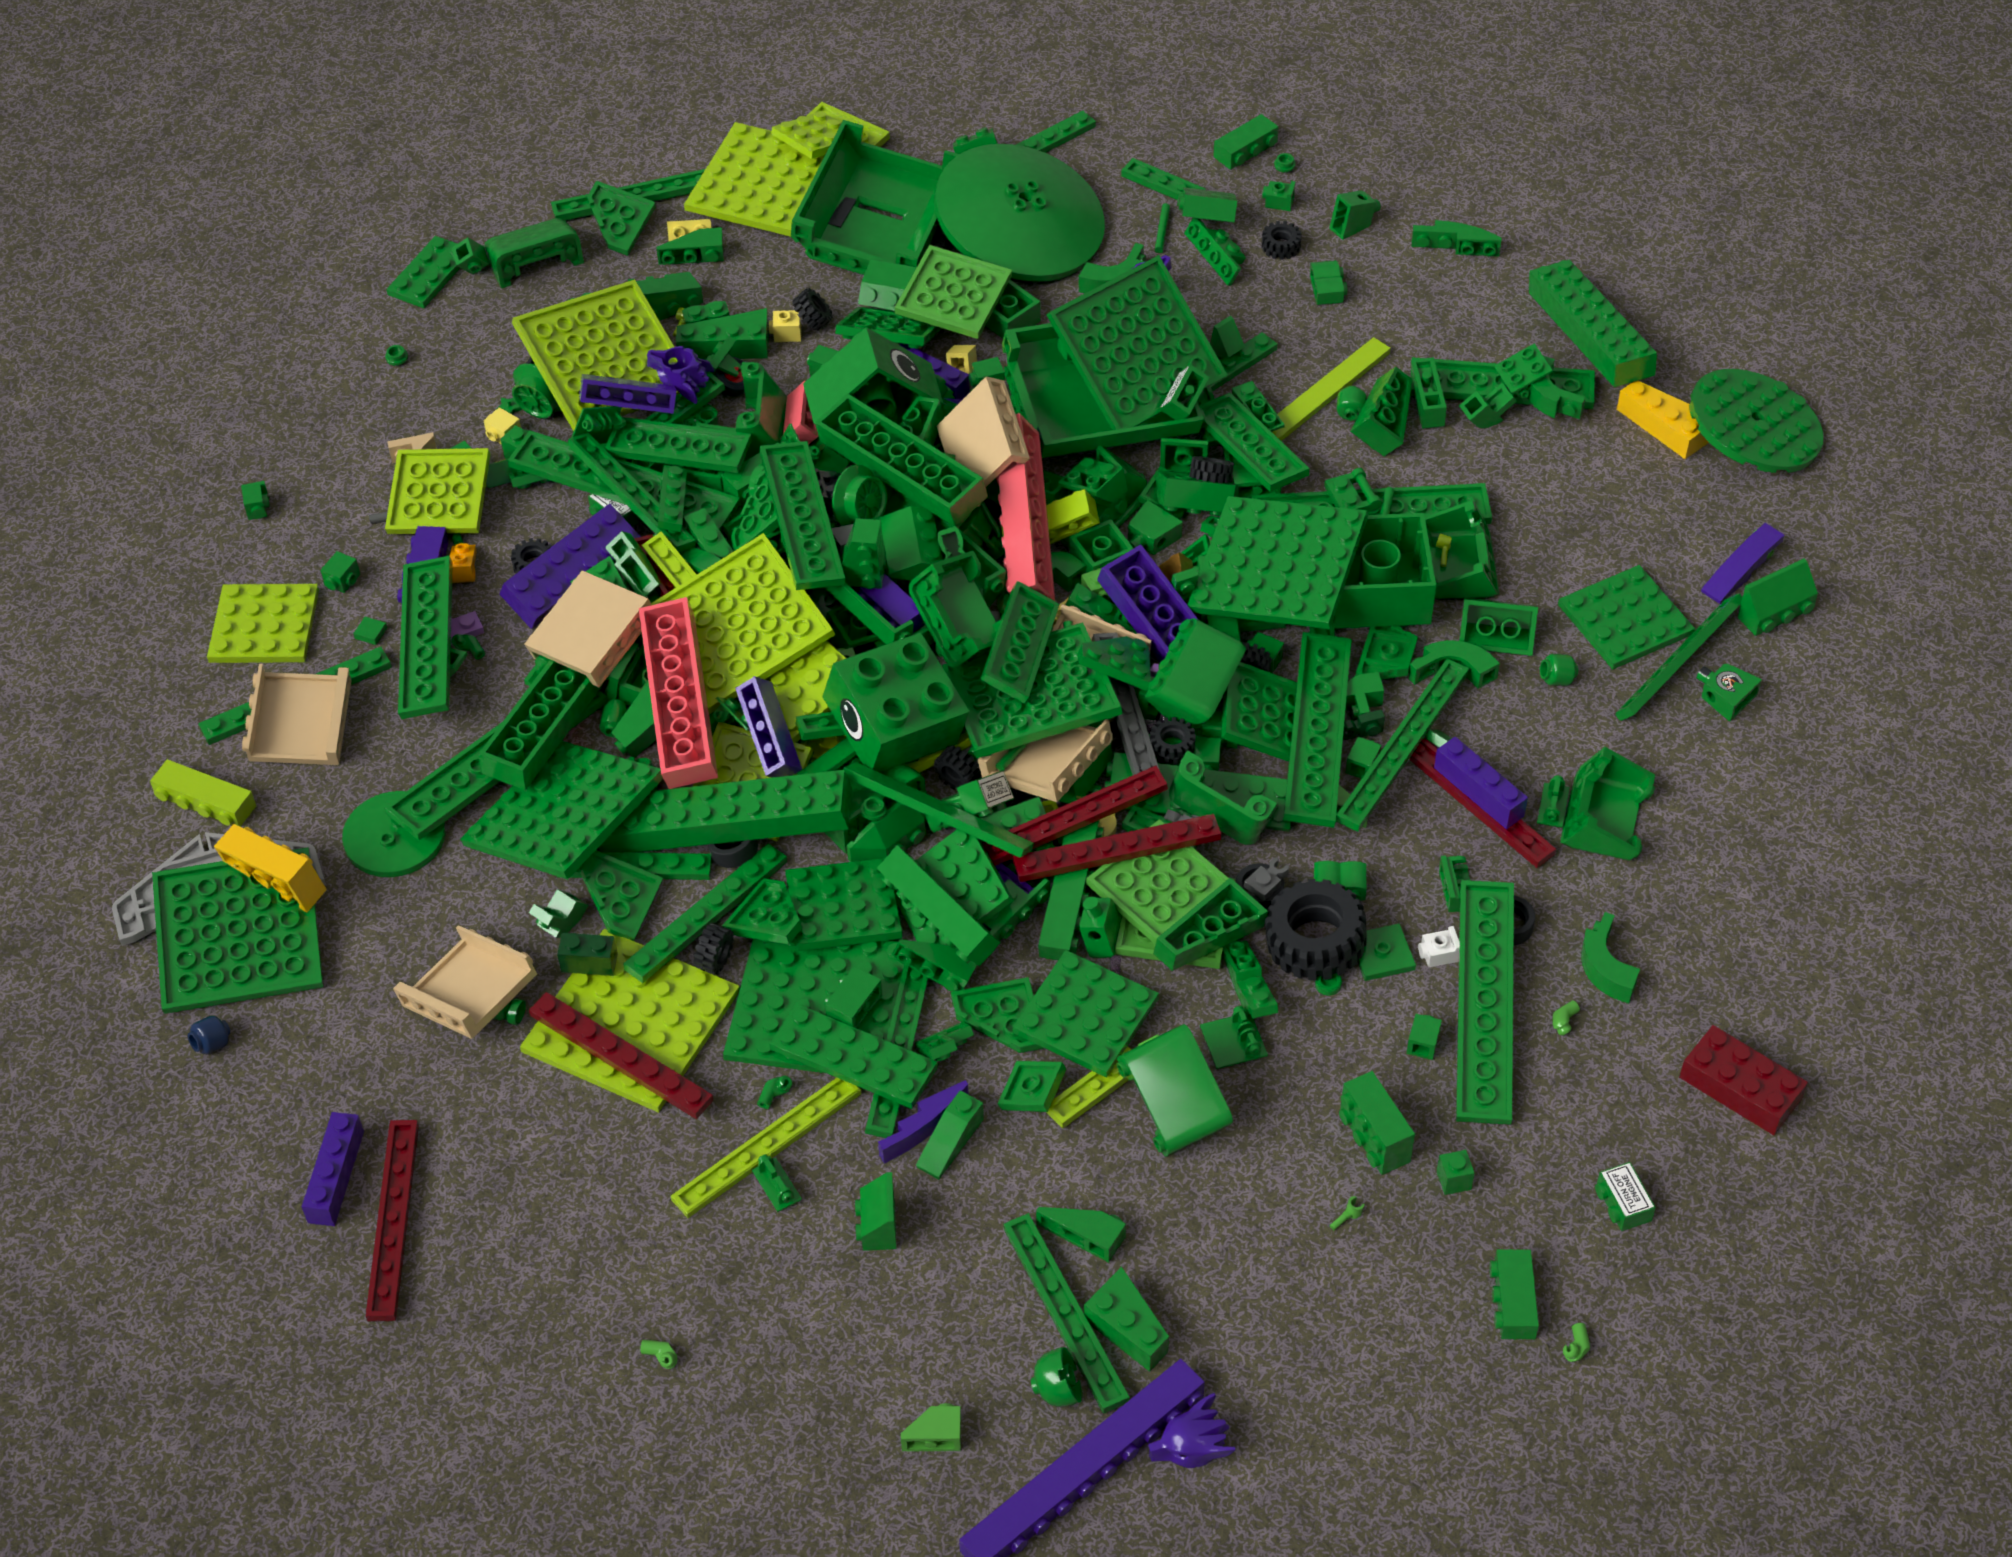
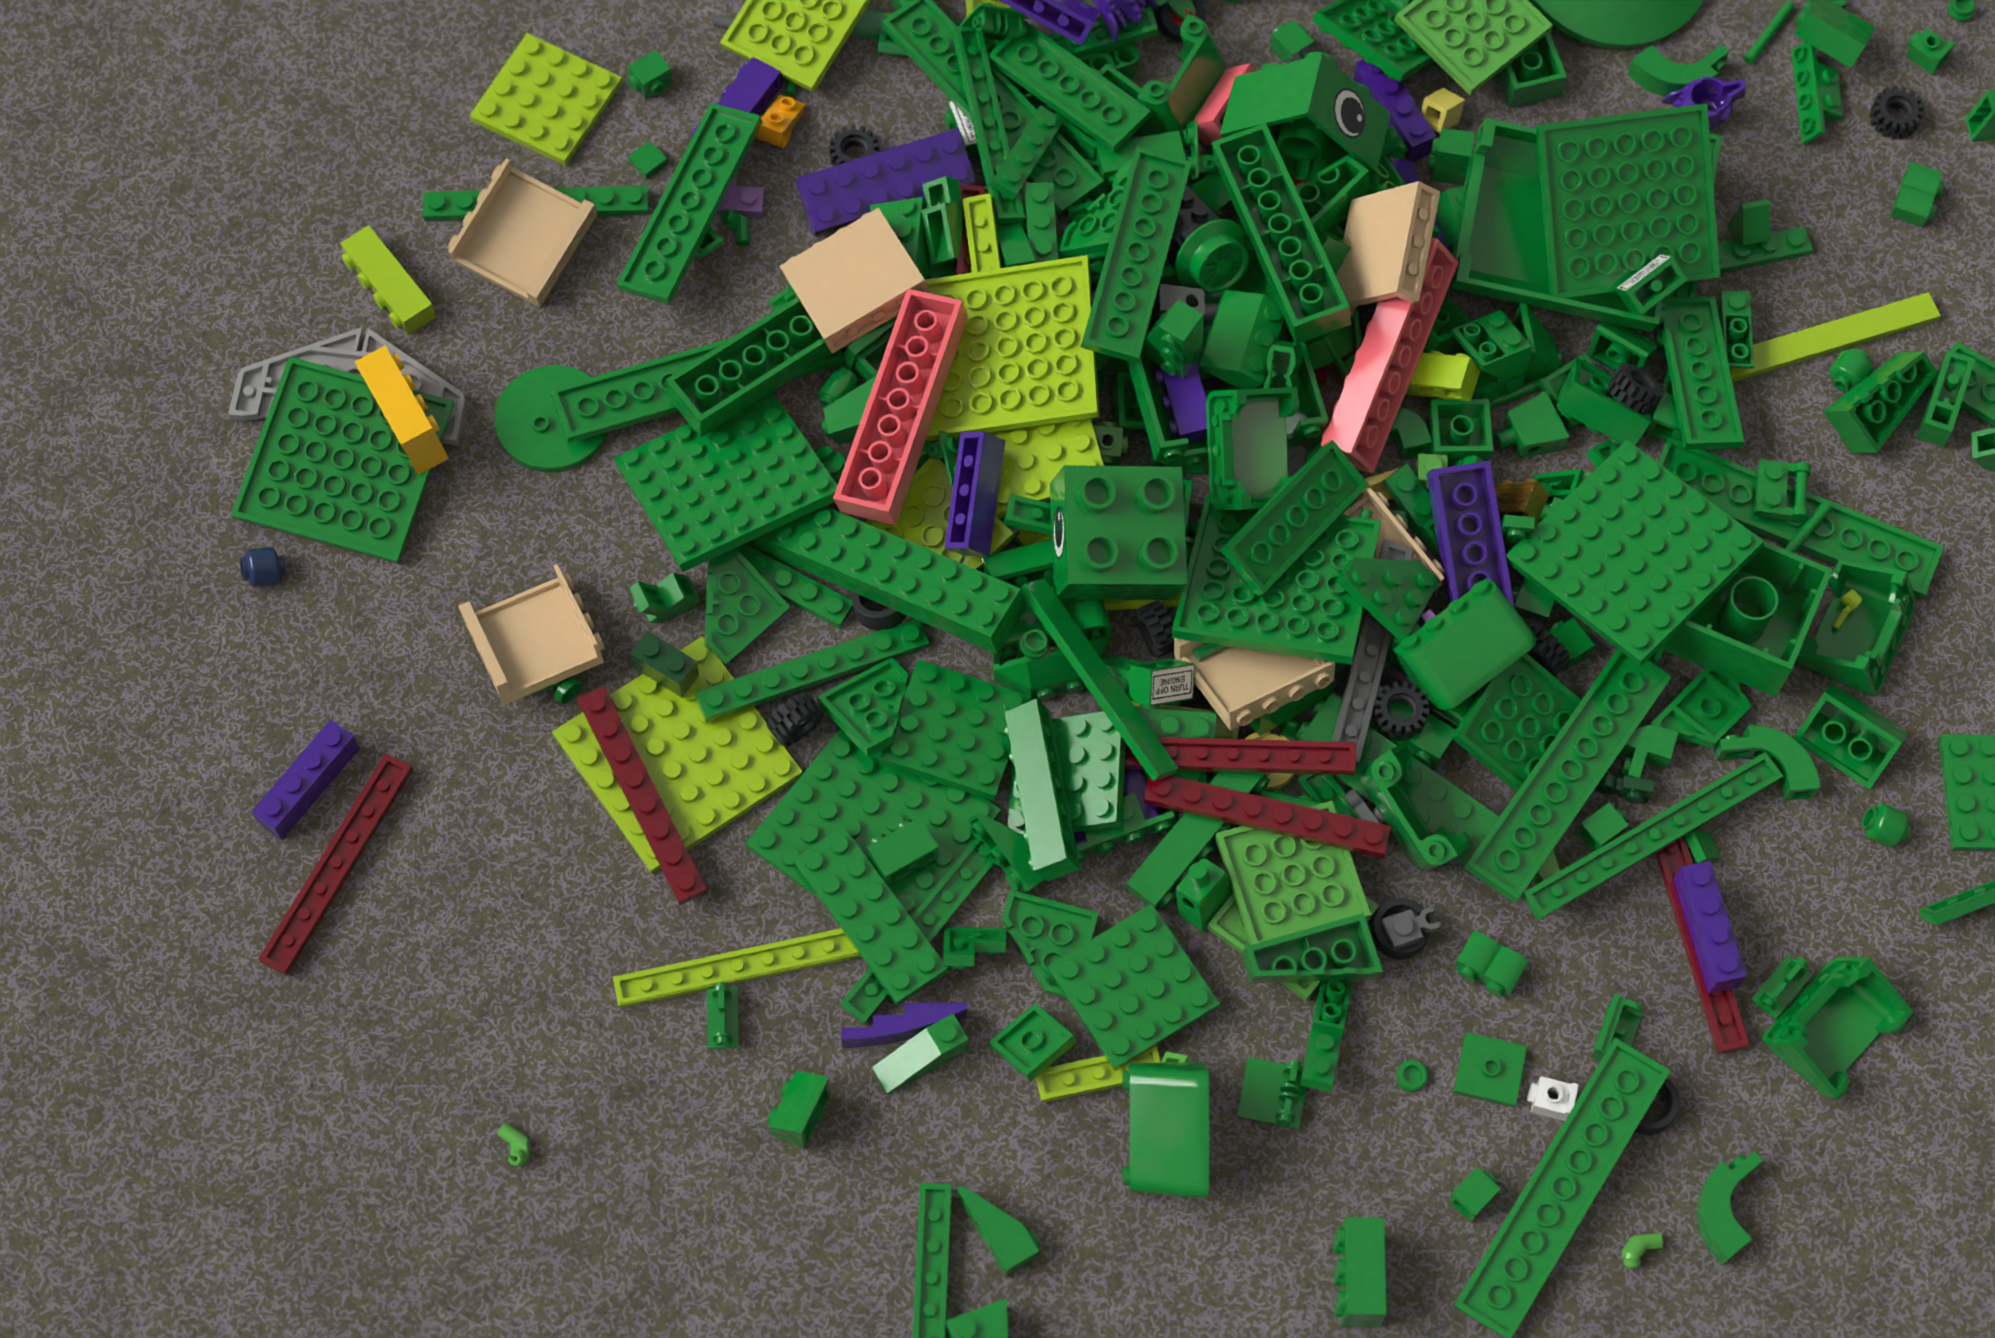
camera: 25 degrees right, 15 degrees up
(774, 1088) = (775, 907): green arm -> none
(1312, 903) = (1433, 976): black tyre -> none

